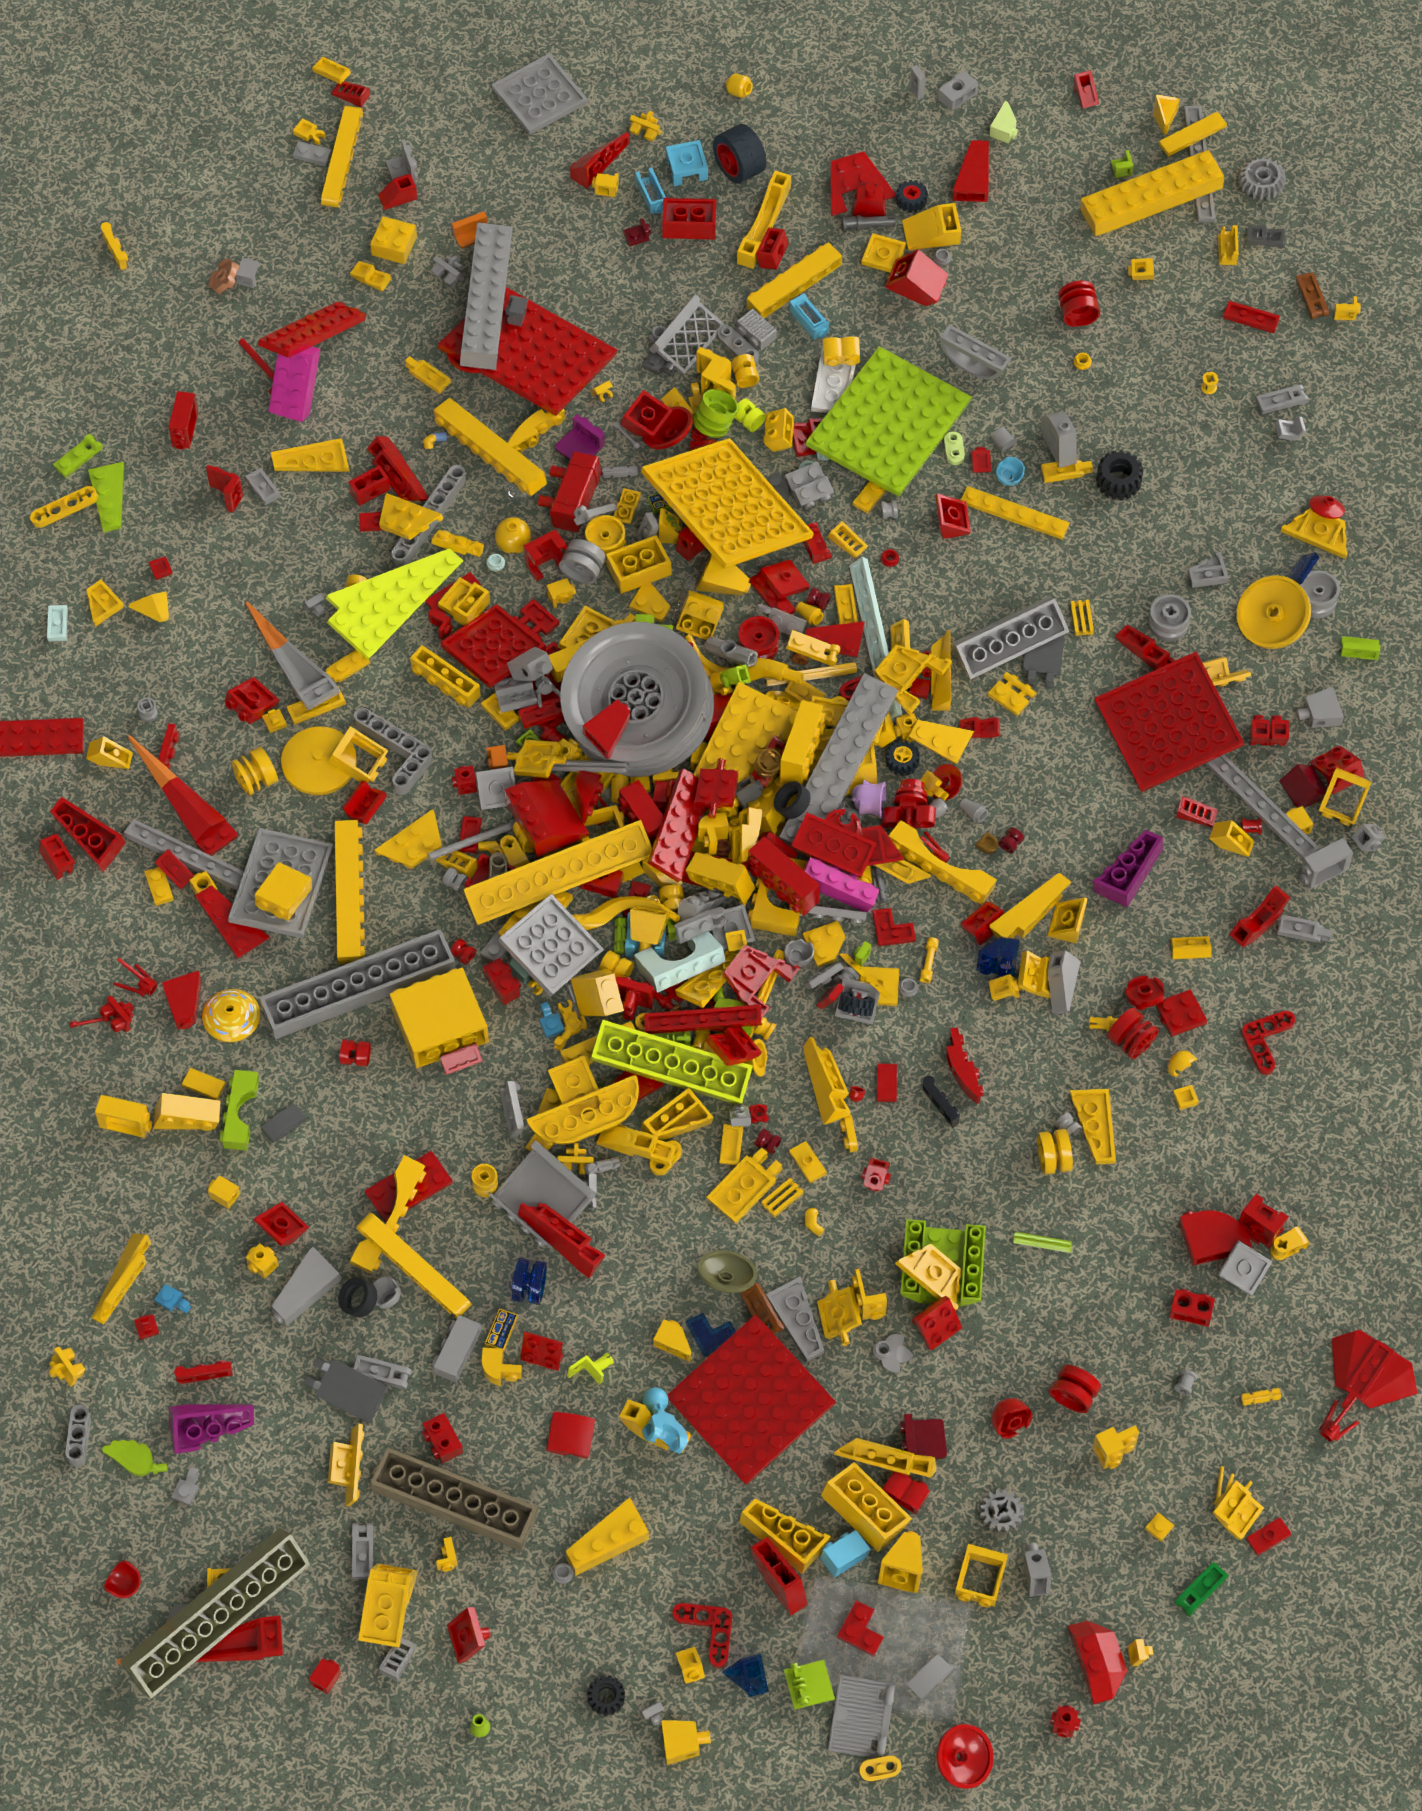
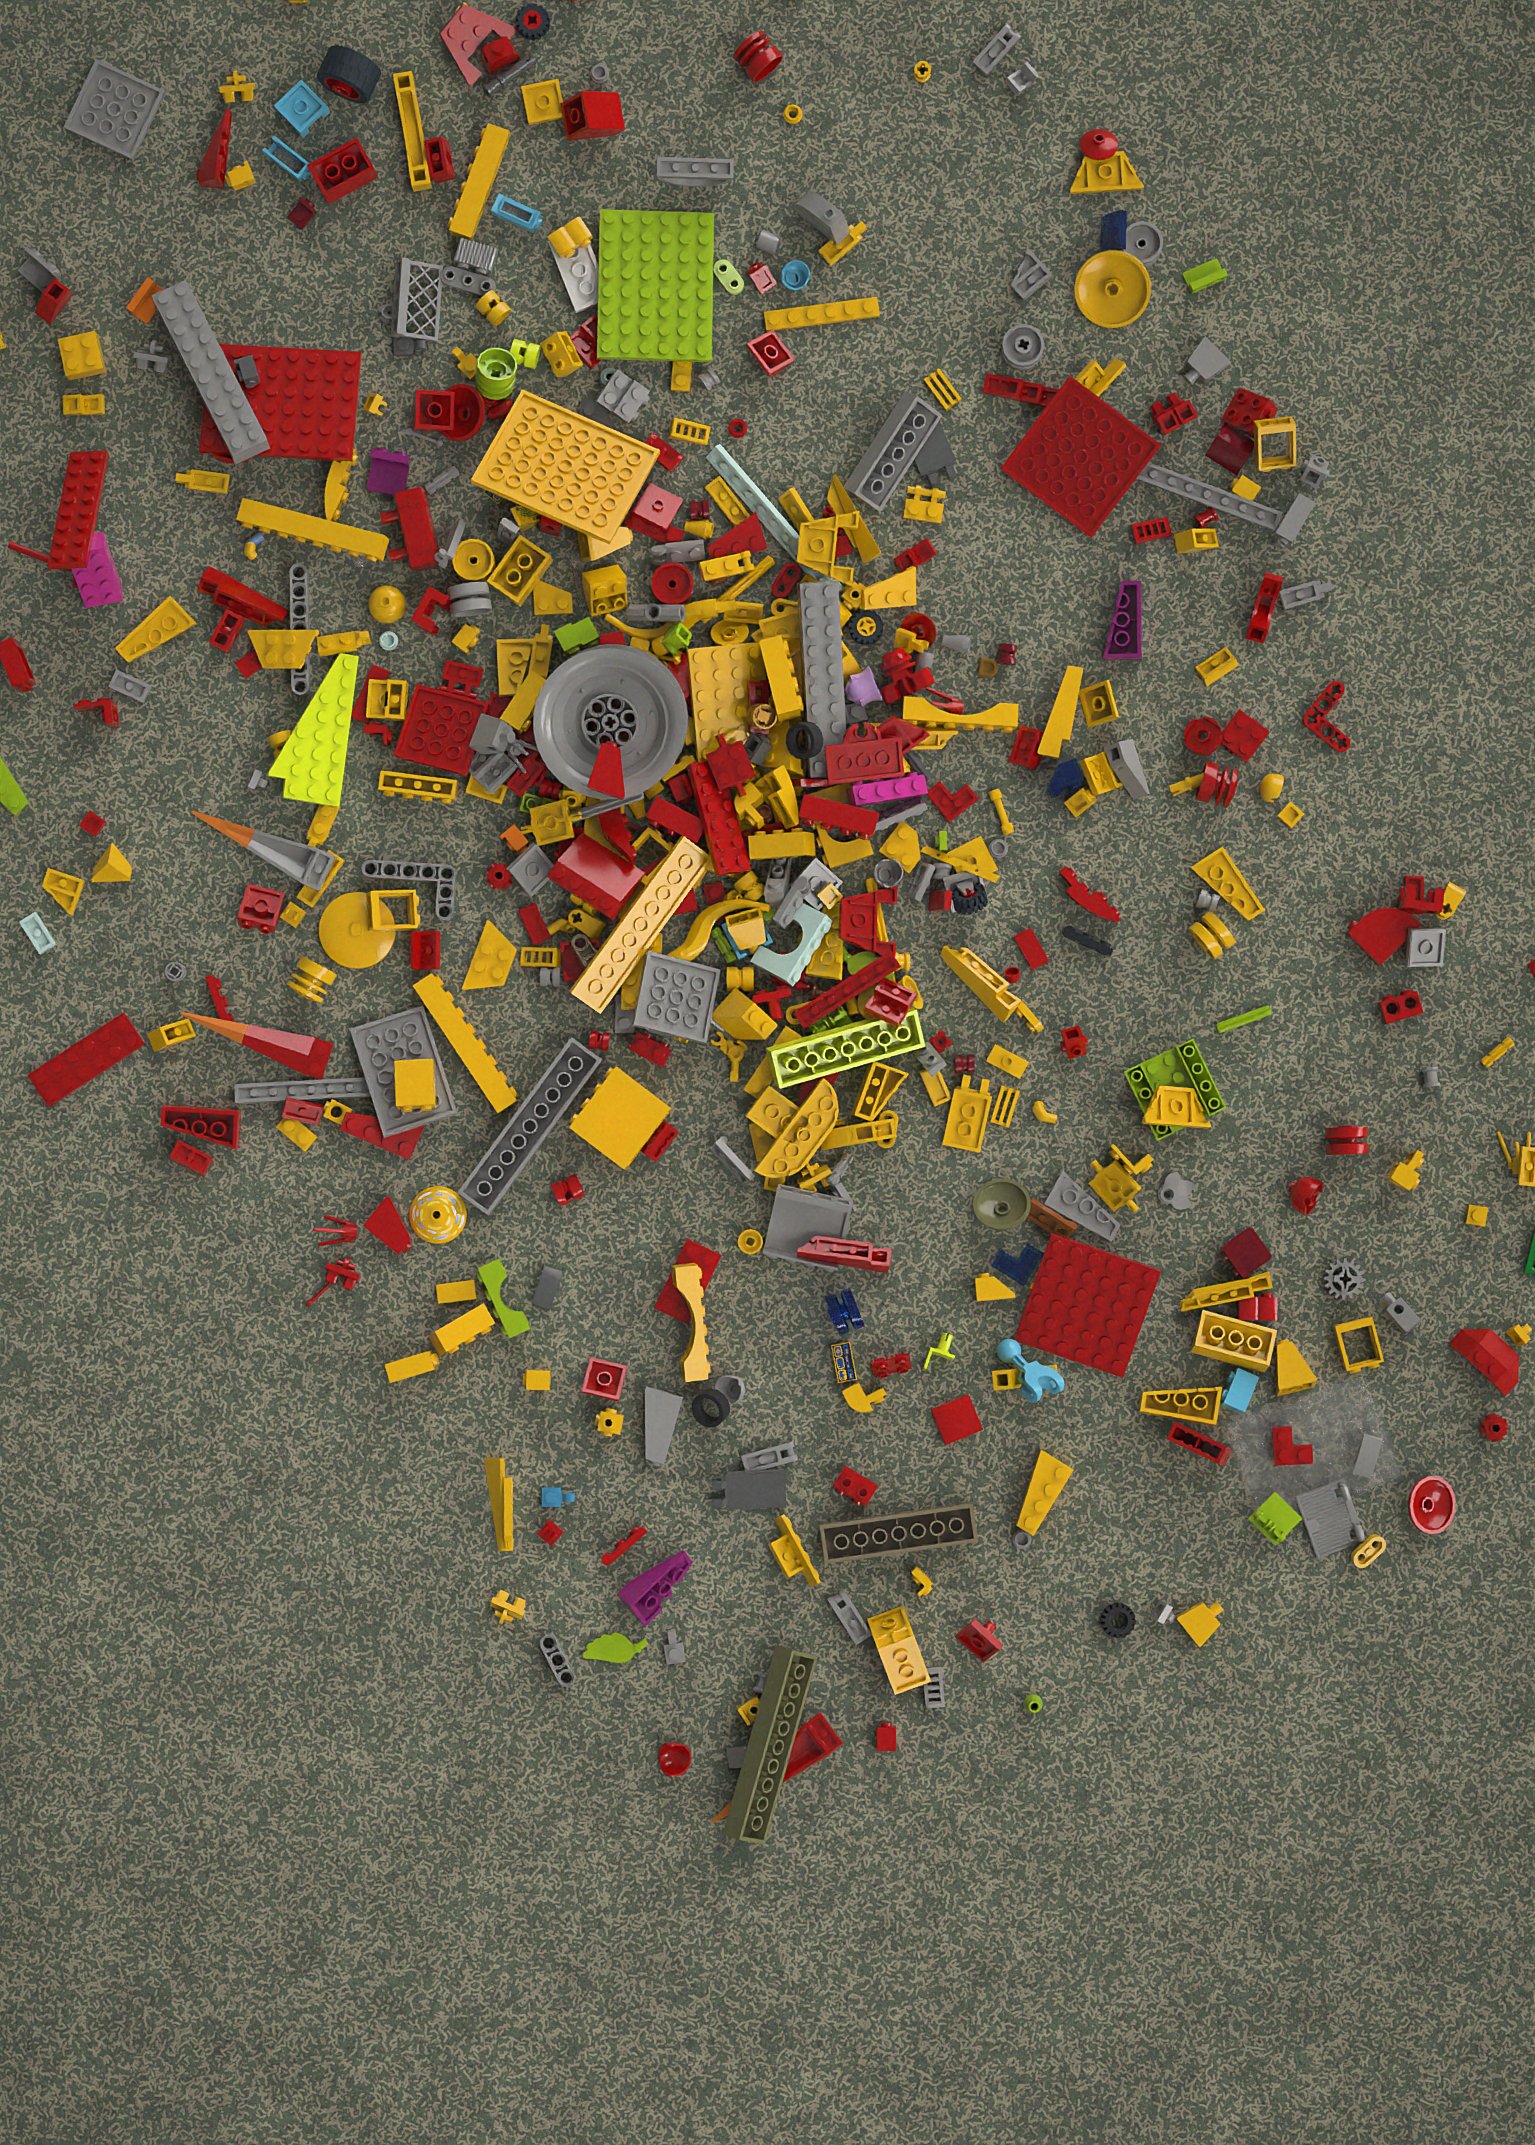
camera: 25 degrees left, 25 degrees up
(413, 1265) = (740, 1355): yellow beam -> none
(456, 1348) = (818, 1402): light grey brick -> none
(472, 840) = (542, 930): light grey bar -> none
(550, 1023) = (715, 1061): dark azure plate -> none
(627, 505) = (470, 513): yellow slope -> none
(674, 399) = (448, 377): yellow plate -> none
(690, 1665) = (1169, 1555): yellow bracket -> none
(711, 1621) = (1165, 1508): red beam -> none
(714, 372) = (472, 332): yellow bracket -> none
(748, 1675) = (1221, 1537): clear blue slope -> none
(933, 228) = (573, 48): yellow slope -> none
(937, 1322) = (1201, 1146): red plate -> none
(1115, 486) = (890, 236): black tyre -> none

